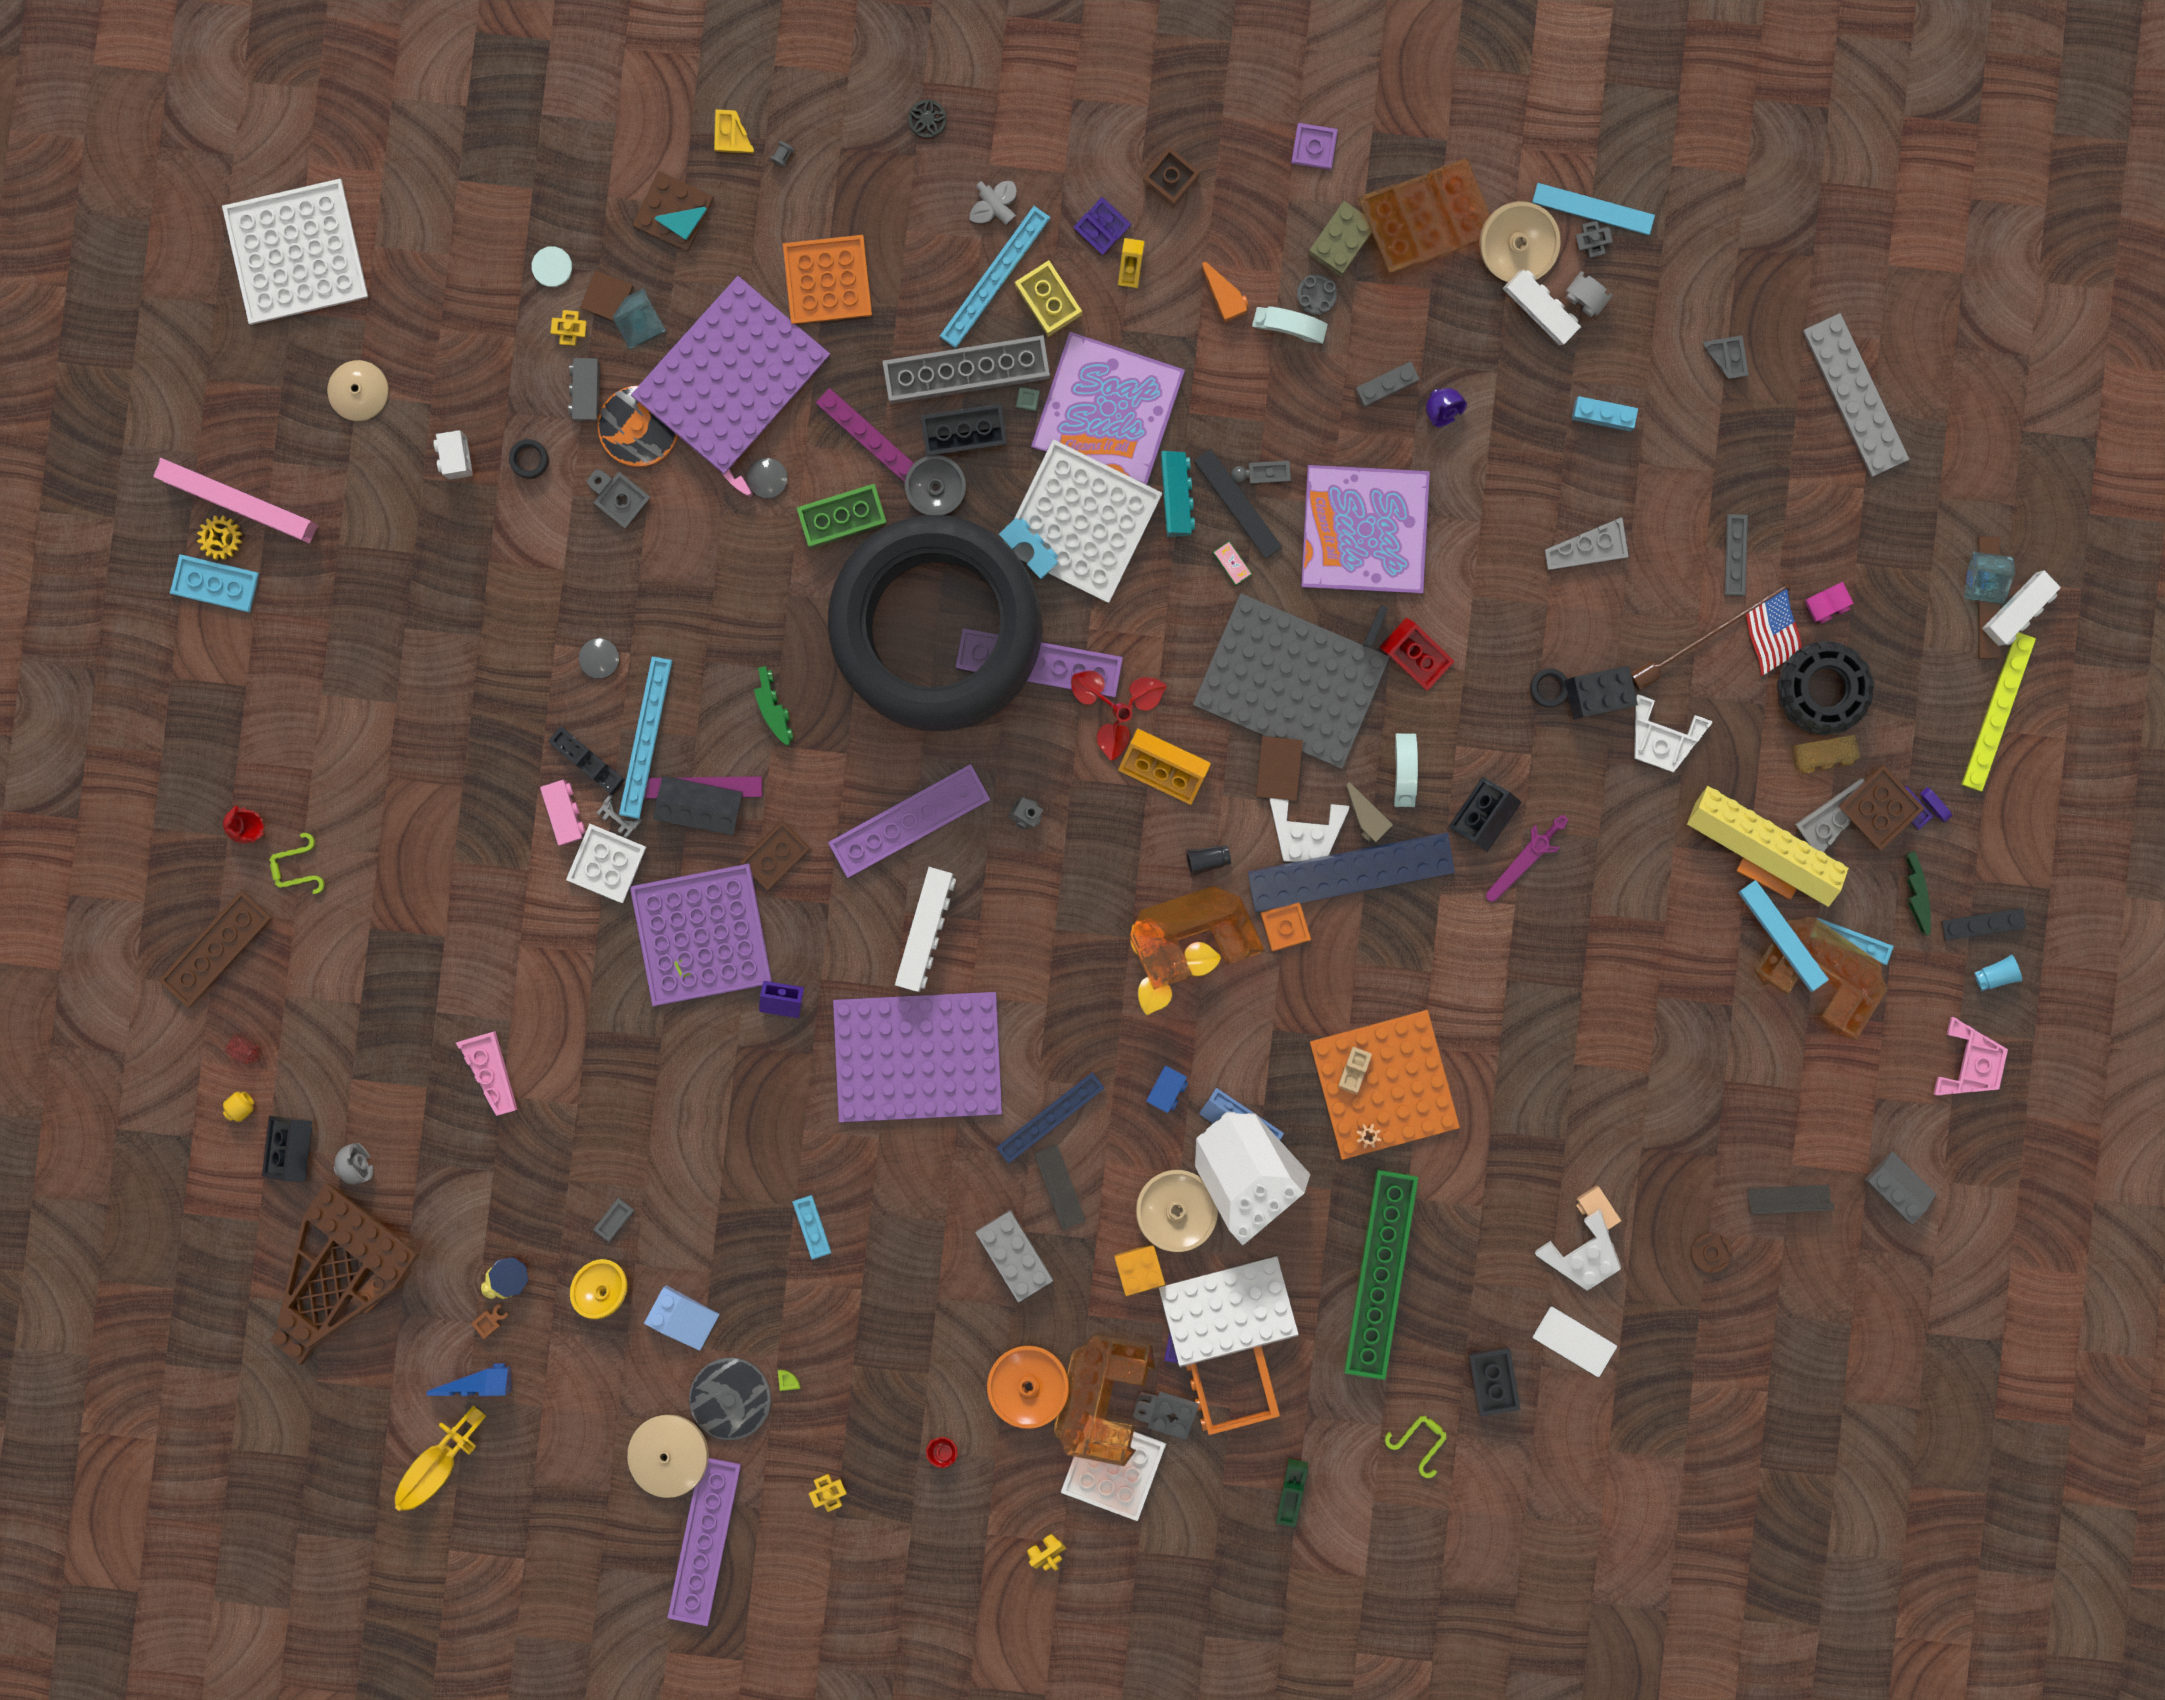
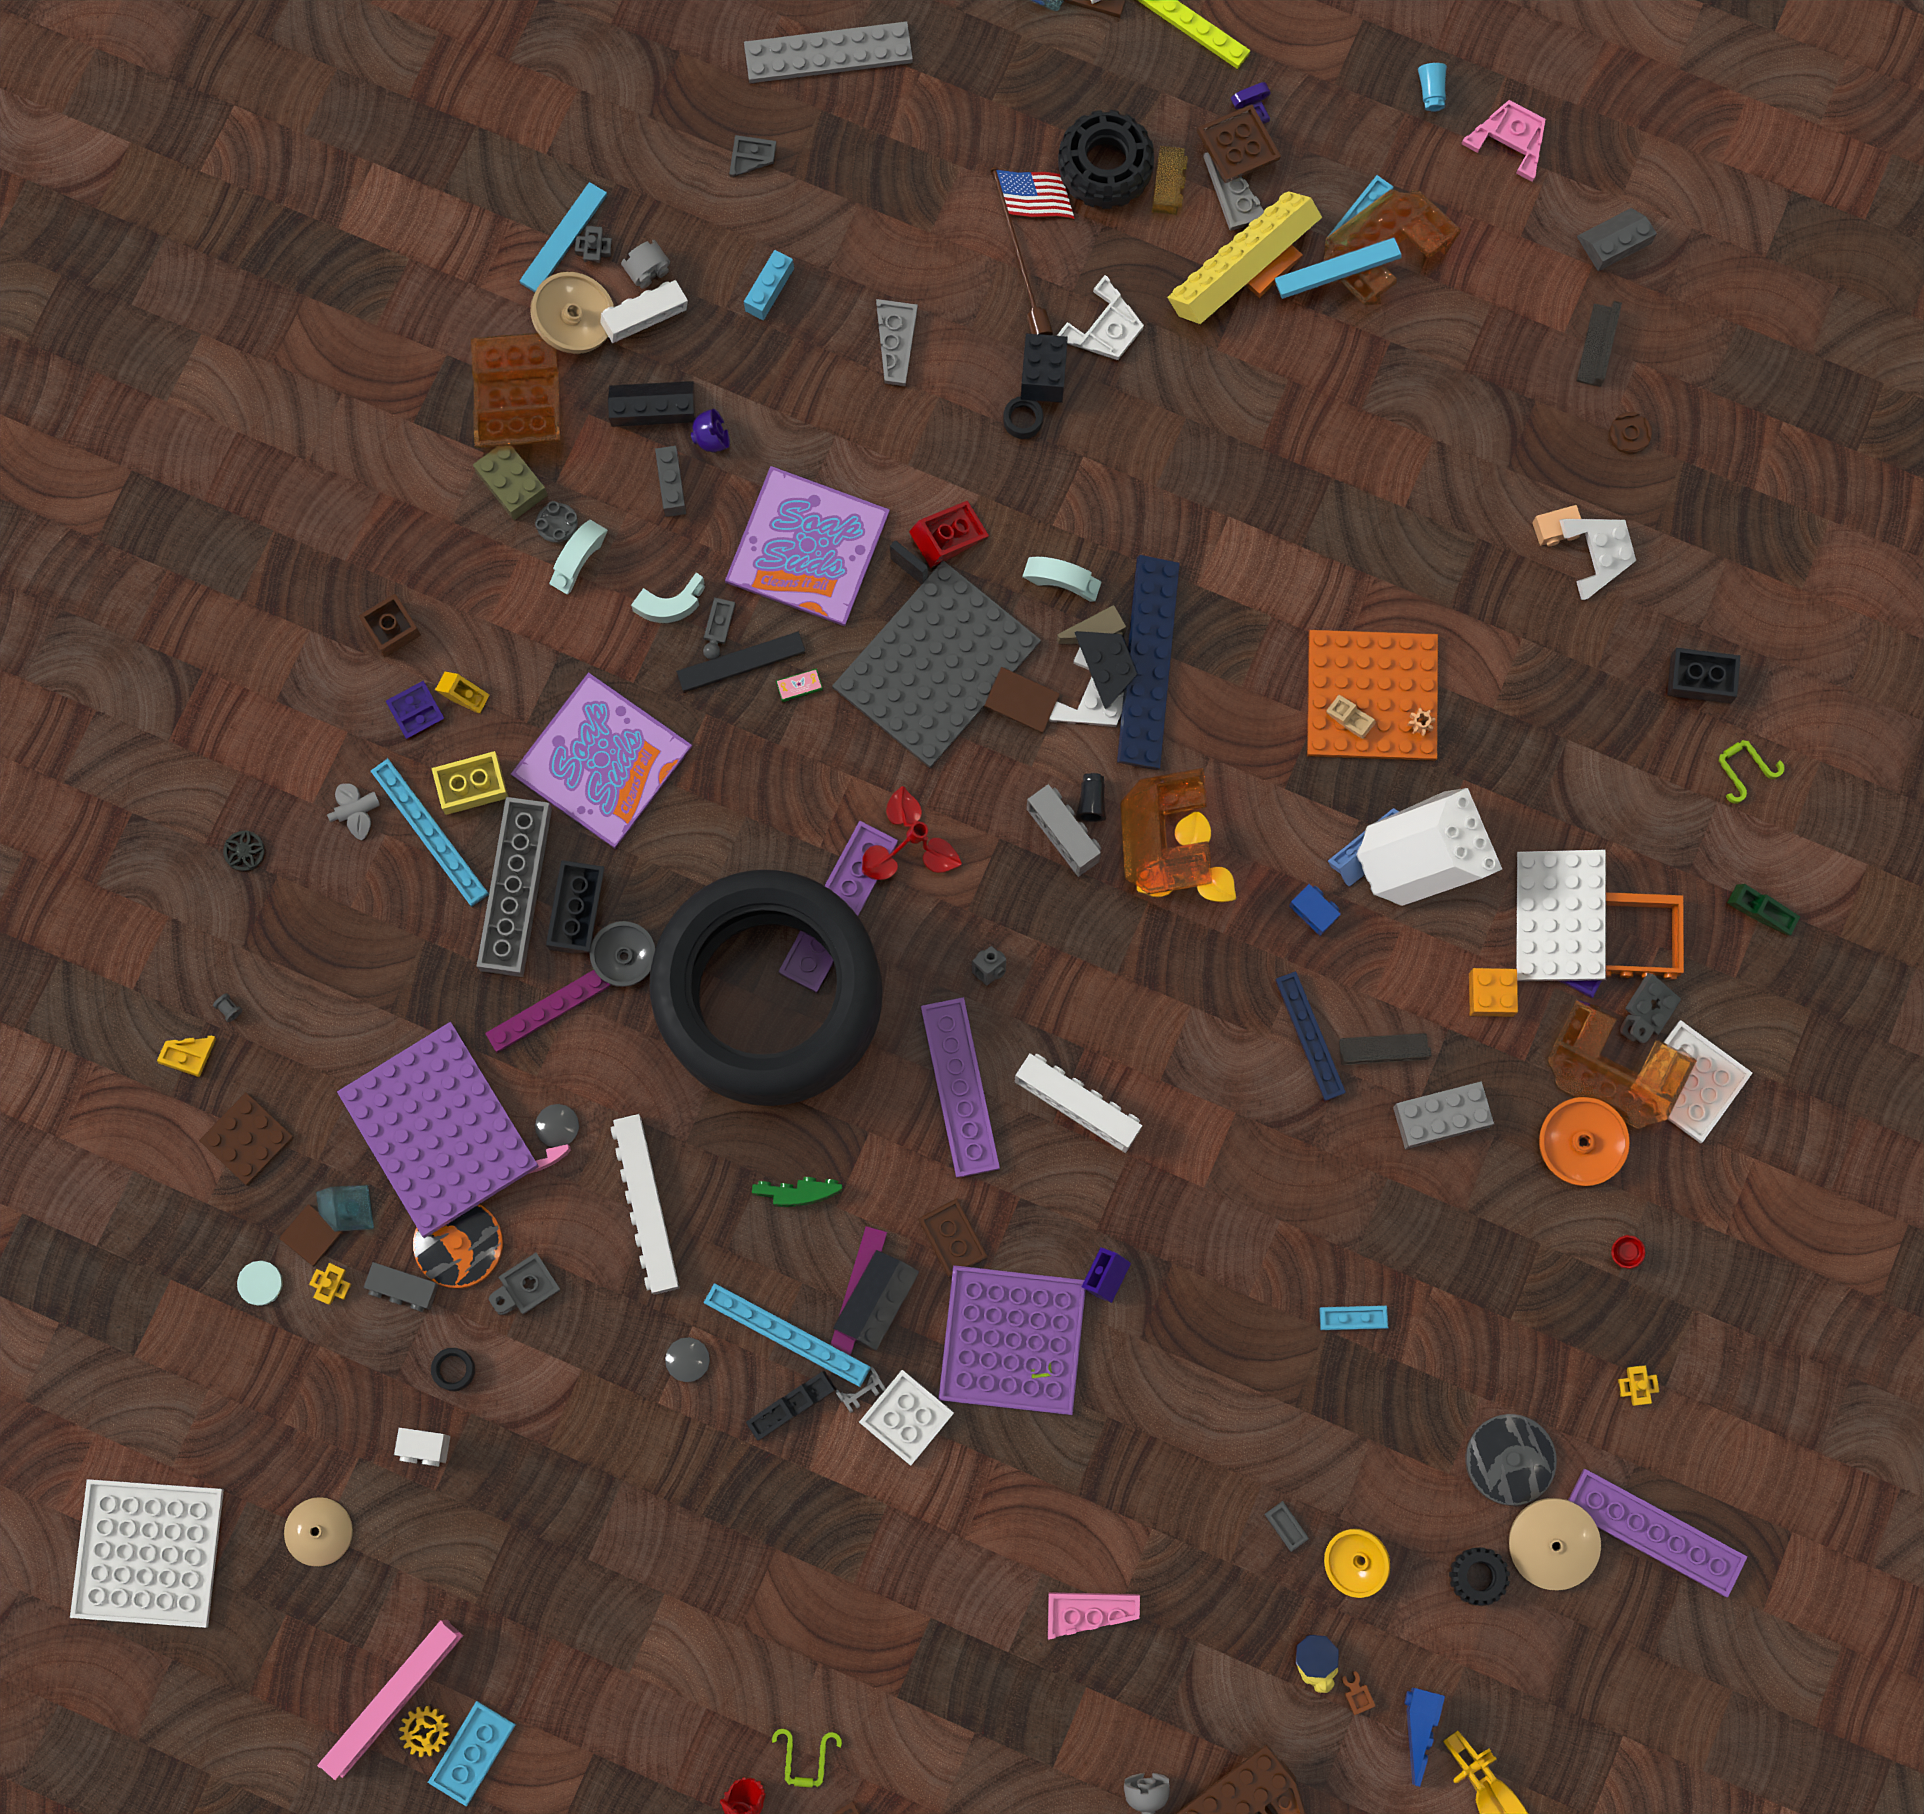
camera: 75 degrees left, 10 degrees down
(563, 812) = (837, 1446): bright pink brick -> none
(607, 1411) = (1498, 1571): none -> black tyre
(681, 1318) = (1411, 1485): light blue slope -> none
(682, 222) = (261, 1130): teal tile -> none
(721, 578) = (646, 1204): none -> white brick
(787, 1381) = (1508, 1393): lime tile -> none
(827, 279) = (373, 1001): orange plate -> none
(842, 516) = (622, 1058): bright green brick -> none
(917, 1057) = (1207, 1154): medium lavender plate -> none
(1018, 533) = (733, 864): medium azure arch -> none
(1027, 399) = (565, 837): sand green tile -> none
(1039, 1558) = (1765, 1186): yellow hips -> none
(1086, 517) = (707, 816): white plate -> none
(1164, 766) = (984, 813): light orange slope -> none
(1168, 841) = (1064, 830): none -> light grey brick
(1176, 493) = (710, 717): teal slope -> none
(1176, 1211) = (1443, 936): tan dish -> none
(1226, 296) = (528, 609): orange slope -> none
(1266, 425) = (670, 609): none -> light aqua arch
(1285, 926) = (1183, 743): orange tile -> none
(1314, 146) = (408, 481): medium lavender tile -> none
(1335, 835) = (1108, 663): none -> black wing
(1380, 1274) = (1565, 753): green brick -> none
(1457, 343) = (651, 403): none -> black slope
(1485, 814) = (1130, 515): black slope -> none
(1538, 845) = (1181, 483): magenta sword -> none
(1574, 1341) = (1683, 589): white sticker -> none
(1735, 555) = (948, 207): dark grey tile -> none
(1829, 602) = (1022, 134): dark pink brick -> none
(1919, 902) = (1338, 136): dark green slope -> none
(1983, 924) = (1380, 88): black plate -> none

